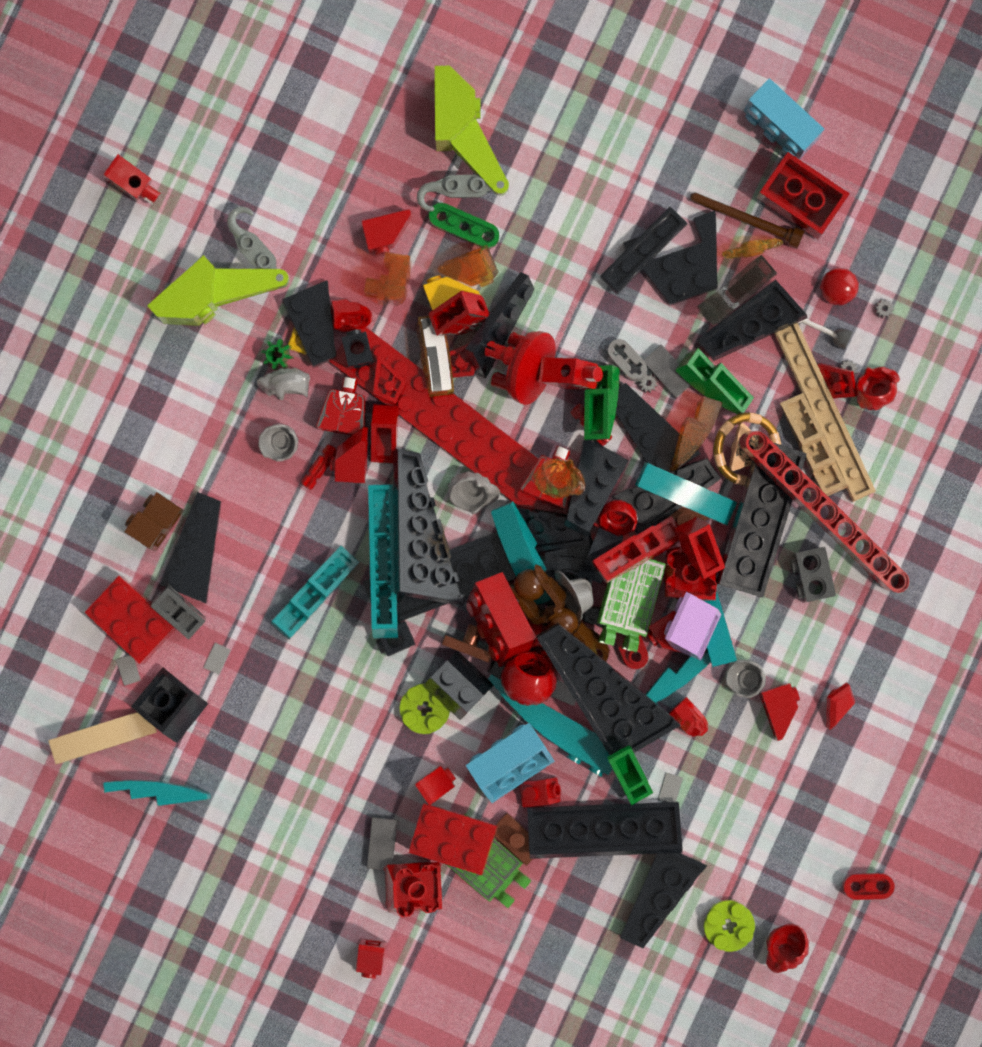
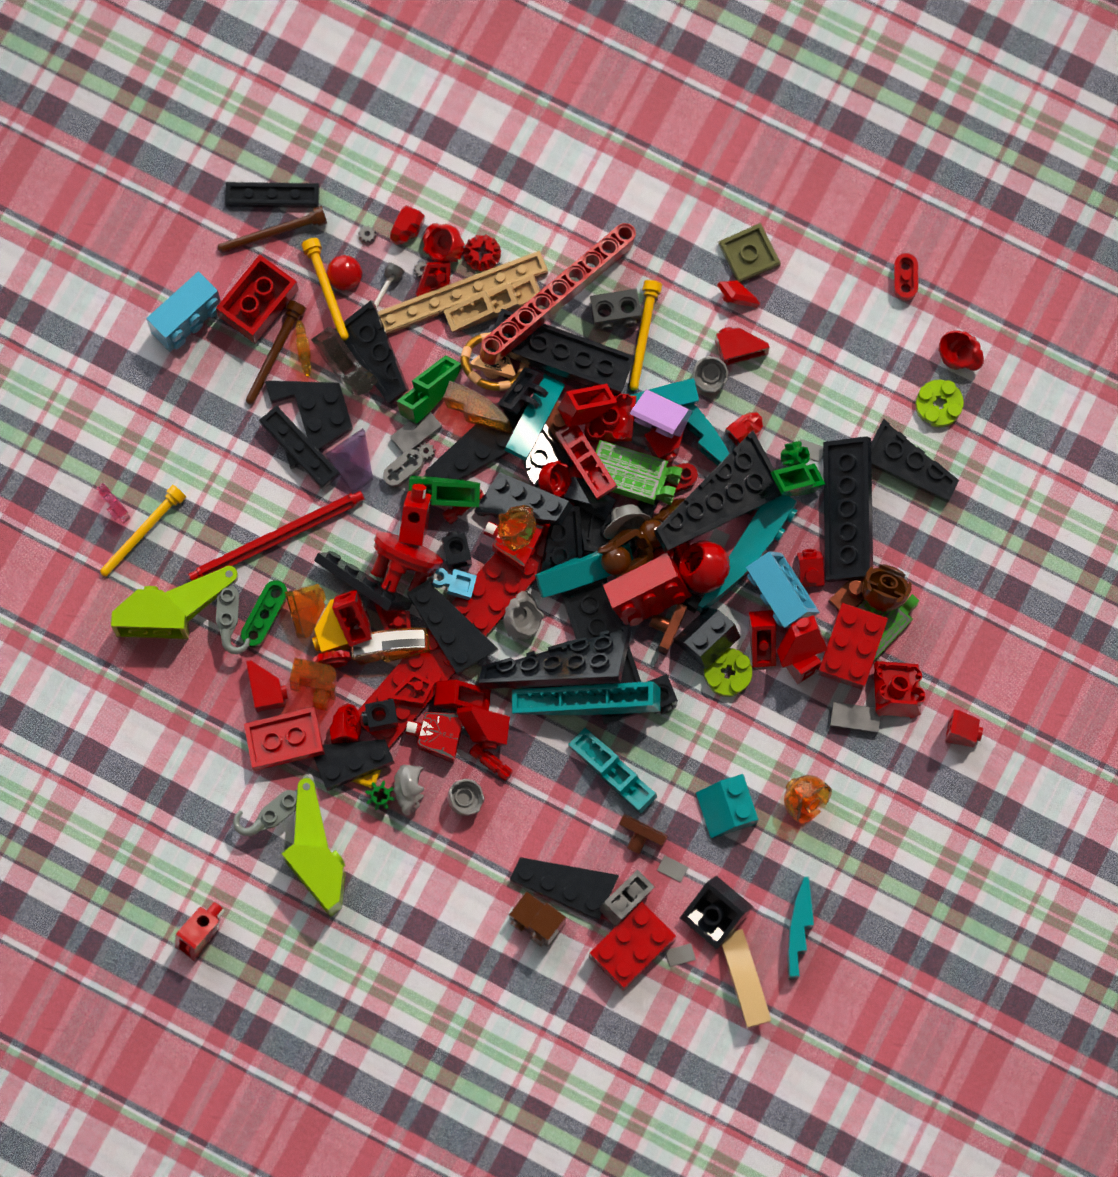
camera: 90 degrees left, 10 degrees down
(249, 625) = (641, 833): none -> copper tile
(280, 712) = (727, 806): none -> teal slope
(292, 792) = (805, 796): none -> clear orange cylinder
(332, 253) = (284, 739): none -> red plate
(416, 297) = (333, 658): none -> red gear
(450, 420) = (452, 631): none -> black wing
(451, 784) = (801, 642): none -> red slope
(460, 743) = (762, 638): none -> red slope
(502, 423) = (458, 583): none -> medium azure plate
(515, 872) = (885, 588): none -> reddish brown cylinder
(532, 427) = (458, 560): none -> black brick
(547, 234) = (279, 535): none -> red piece
(569, 66) = (115, 508): none -> clear pink plate
(583, 124) = (172, 497): none -> yellow piece
(632, 307) = (352, 461): none -> clear purple wing
(660, 772) = (795, 454): none -> green gear
(713, 477) = (520, 391): none -> black hinge
(835, 612) = (651, 291): none -> yellow piece
(861, 438) = (488, 260): none -> red gear
(863, 251) = (312, 248): none -> yellow piece
(886, 716) = (749, 253): none -> olive tile
(894, 348) = (406, 225): none -> red rock
(899, 252) = (316, 217): none -> reddish brown piece
(922, 206) = (272, 194): none -> black tile

